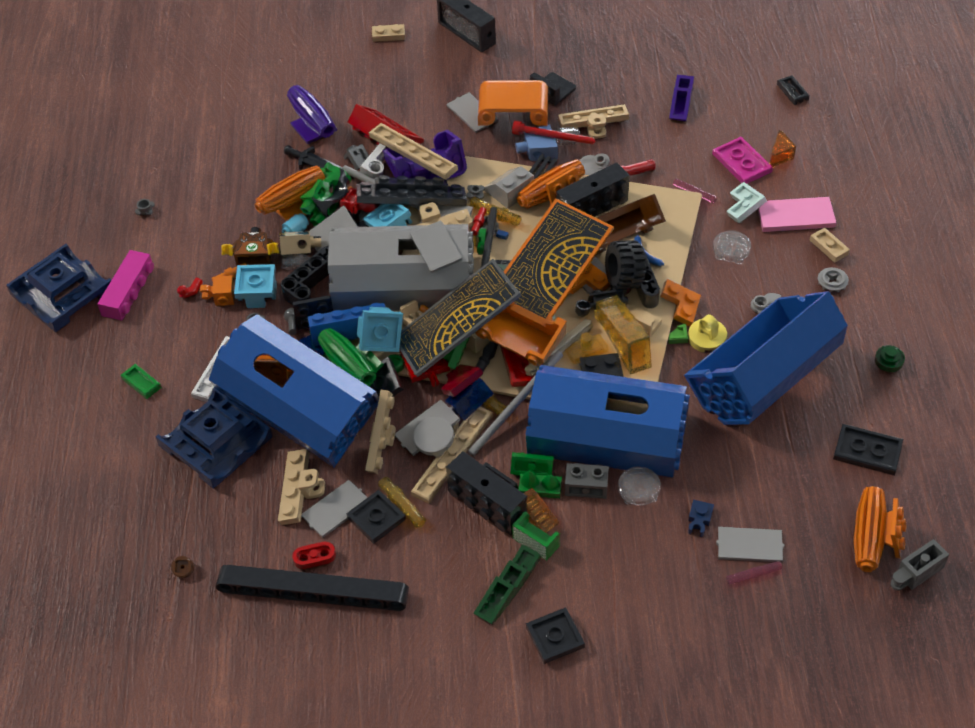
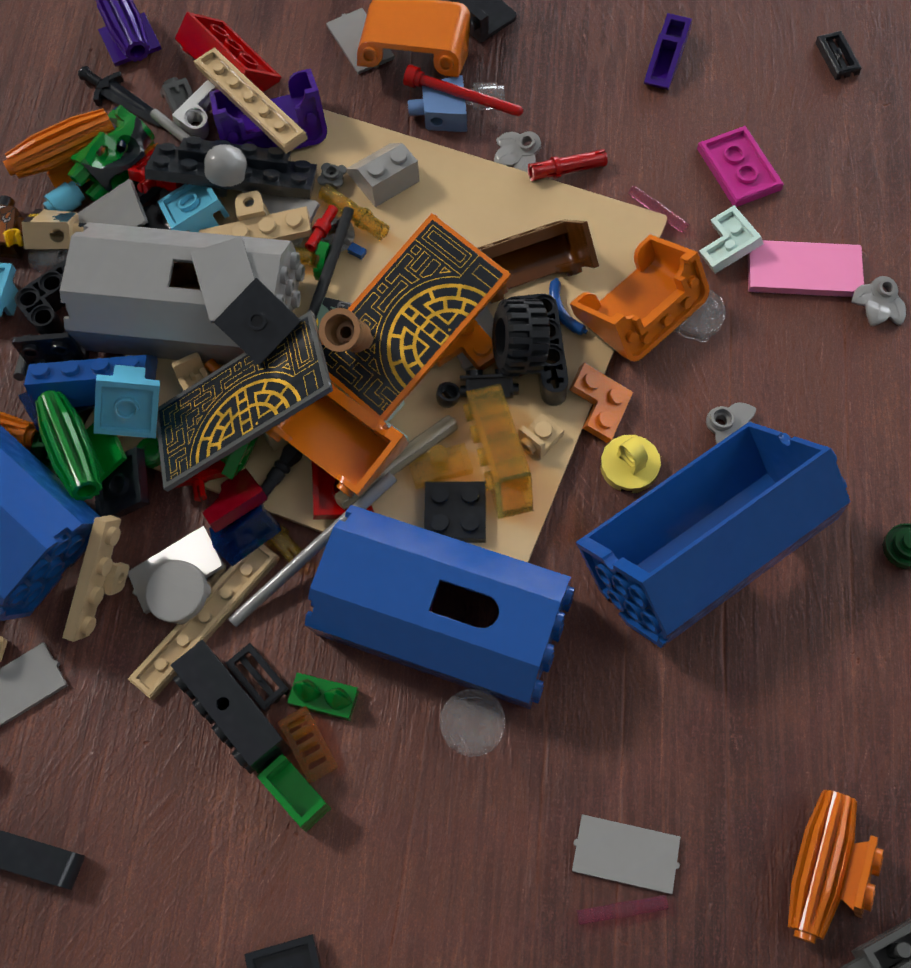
camera: 10 degrees right, 15 degrees up
(376, 516) = (65, 717): black plate -> none
(397, 497) = (104, 685): clear yellow pin -> none
(410, 188) = (225, 165): none -> light grey hair
(462, 267) = (257, 321): none -> black plate
(507, 584) = (234, 873): dark green slope -> none
(517, 267) = (343, 331): none -> medium nougat plant
(537, 464) = (307, 658): green tile -> none
(544, 161) = (432, 146): black tile -> none
(545, 186) = (449, 182): orange plate -> none
(586, 480) = (393, 701): dark grey brick -> none
(594, 119) = (532, 72): tan plate -> none
(598, 191) = (502, 203): black brick -> none
(679, 335) = (587, 456): bright green tile -> none
(700, 516) = (558, 789): dark blue plate -> none
(702, 241) = (649, 301): none -> orange windscreen
(783, 150) = (804, 157): clear orange slope -> none
(829, 245) = (847, 329): tan plate -> none
(830, 274) = (840, 380): light grey gear -> none
(848, 227) = (881, 304): none -> light grey plate
(868, 449) = (845, 706): black tile -> none

